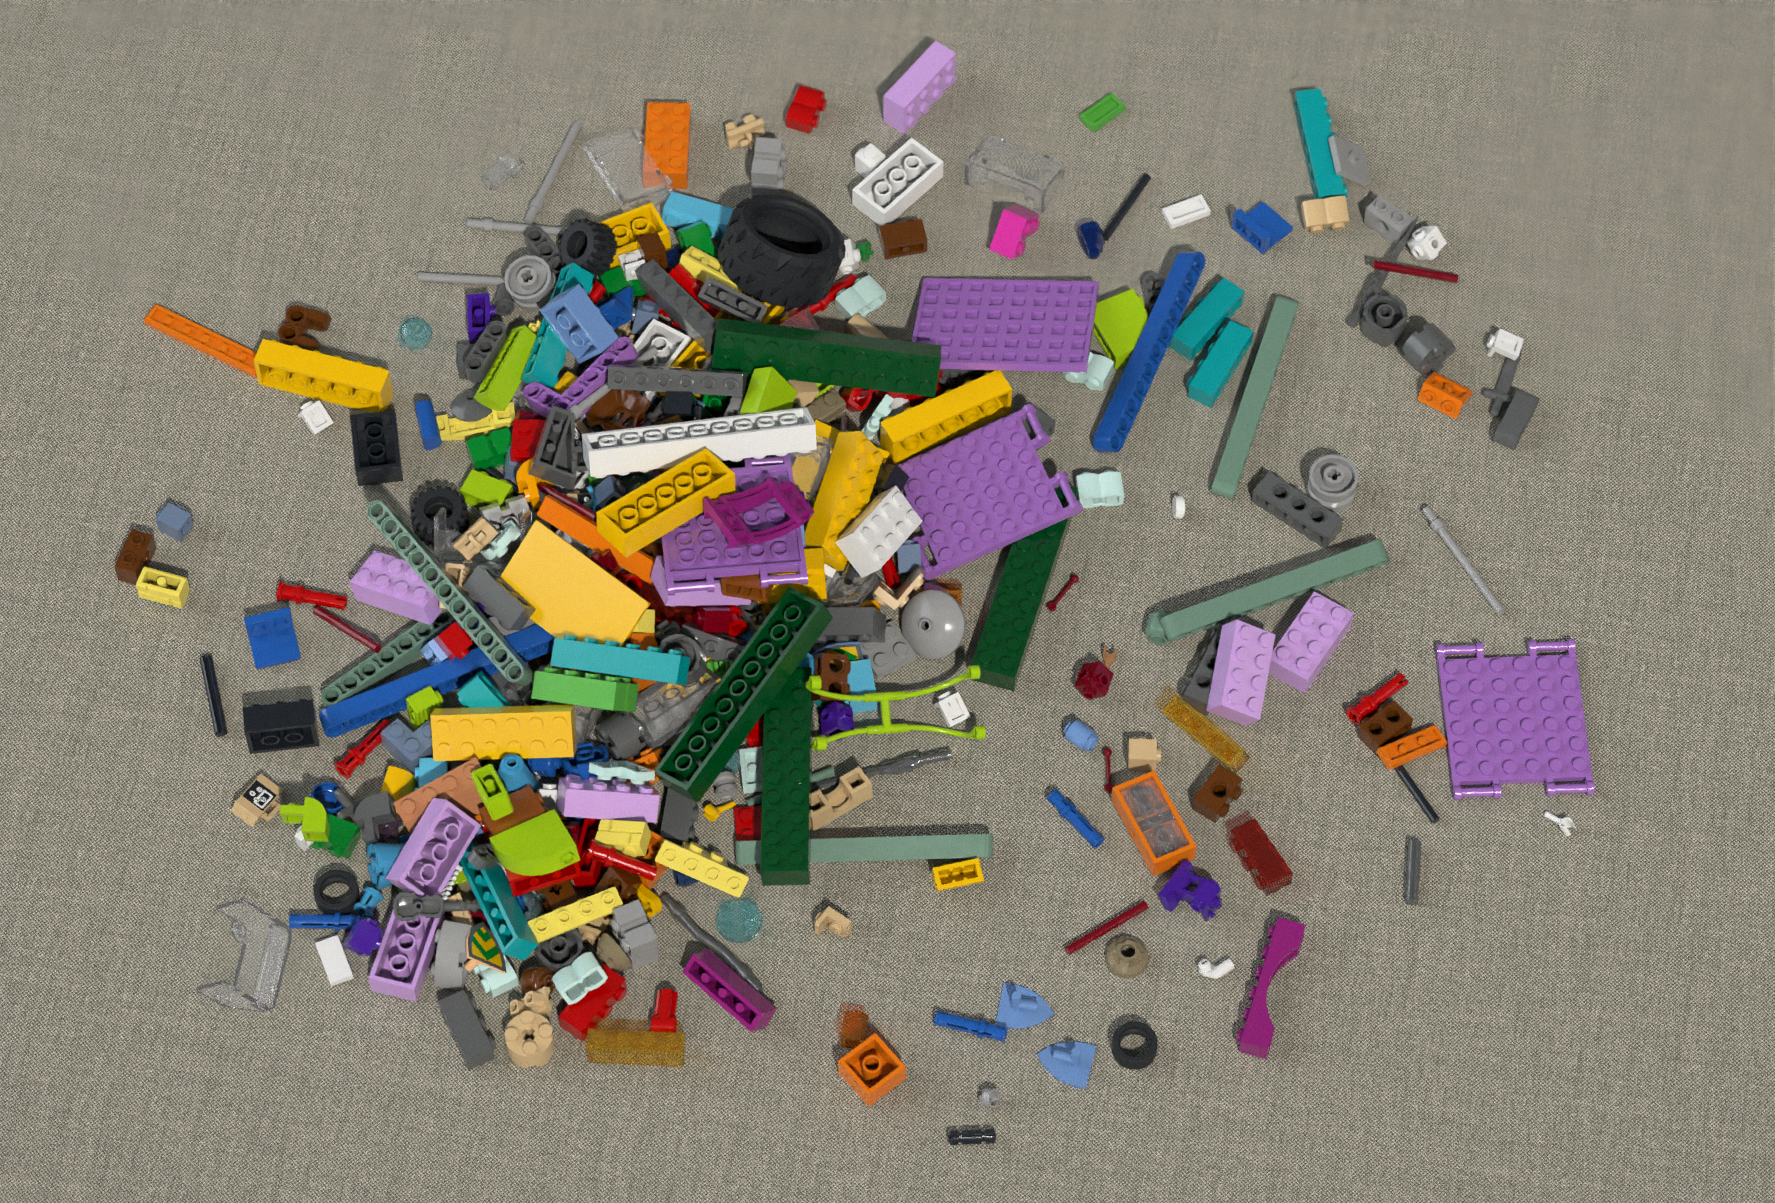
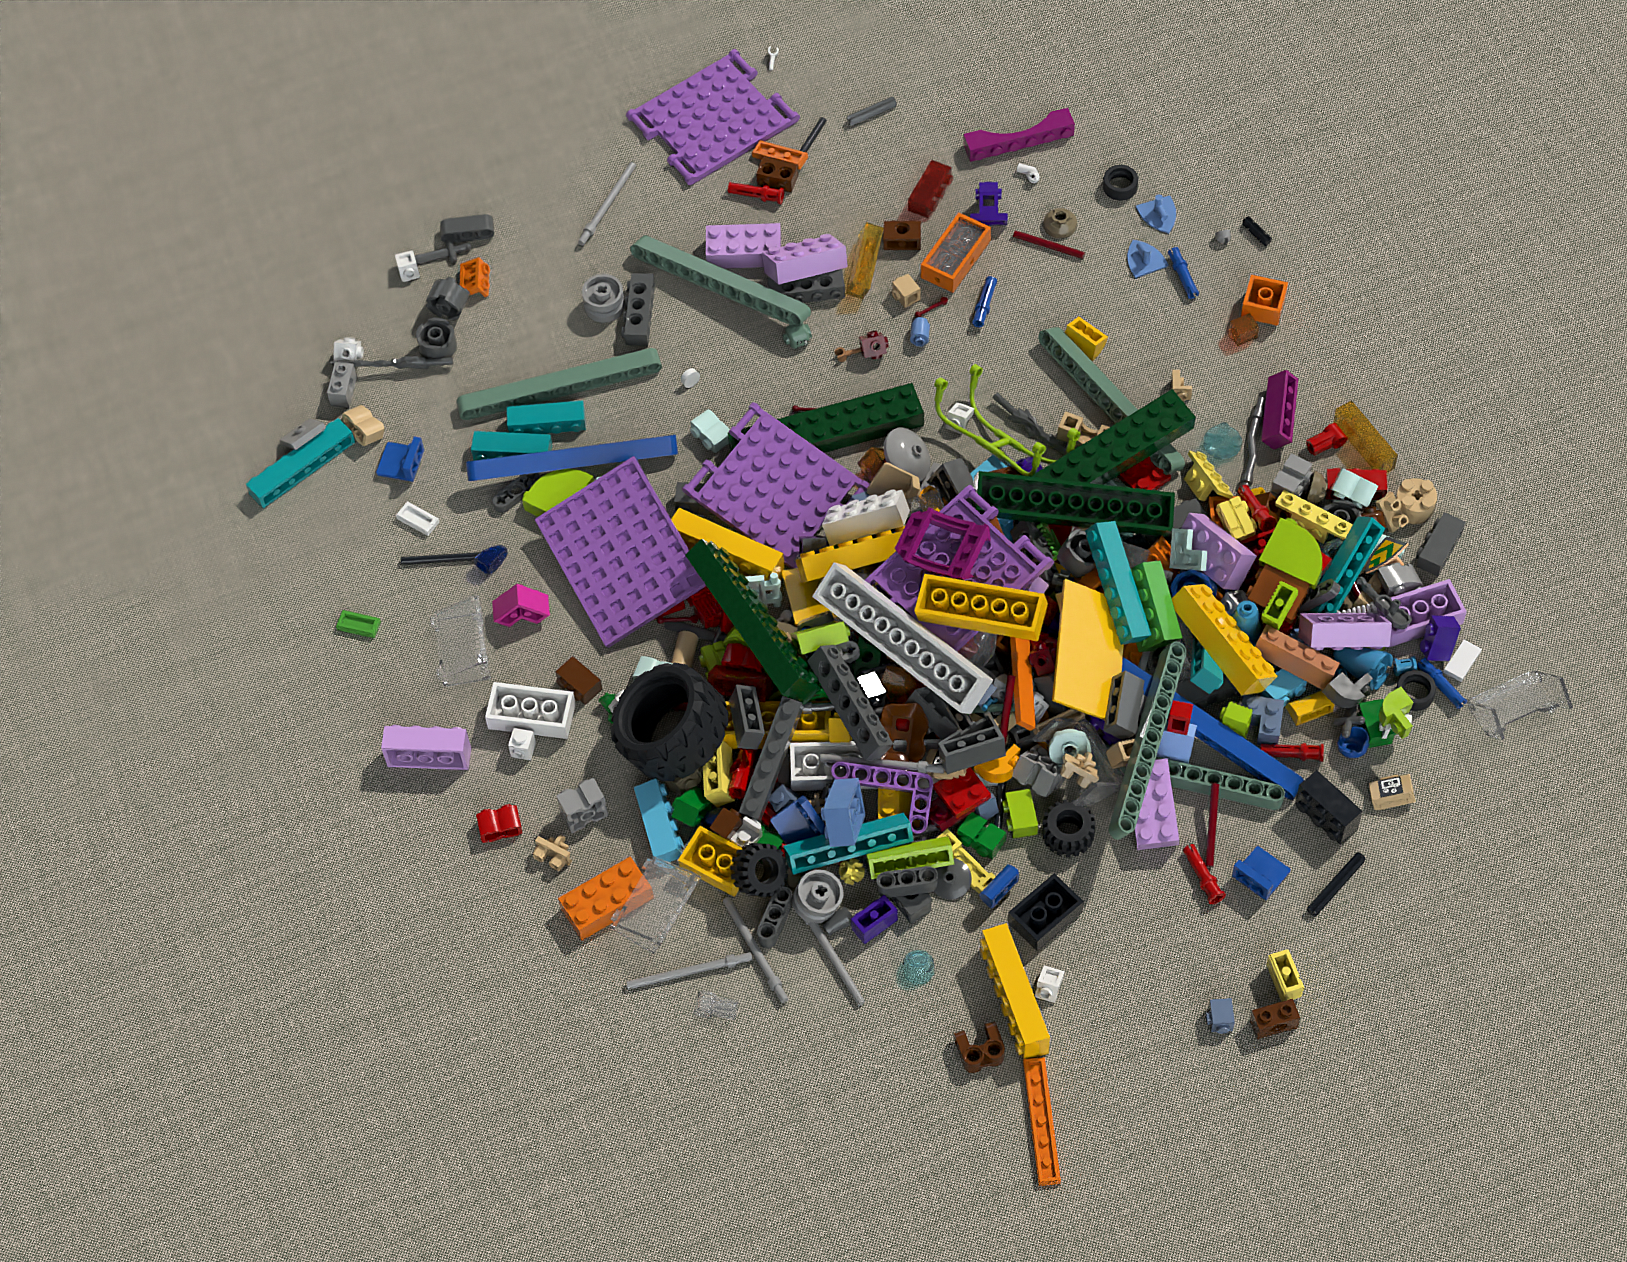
camera: 120 degrees left, 0 degrees up
(1414, 271) = (378, 344): dark red bar -> none

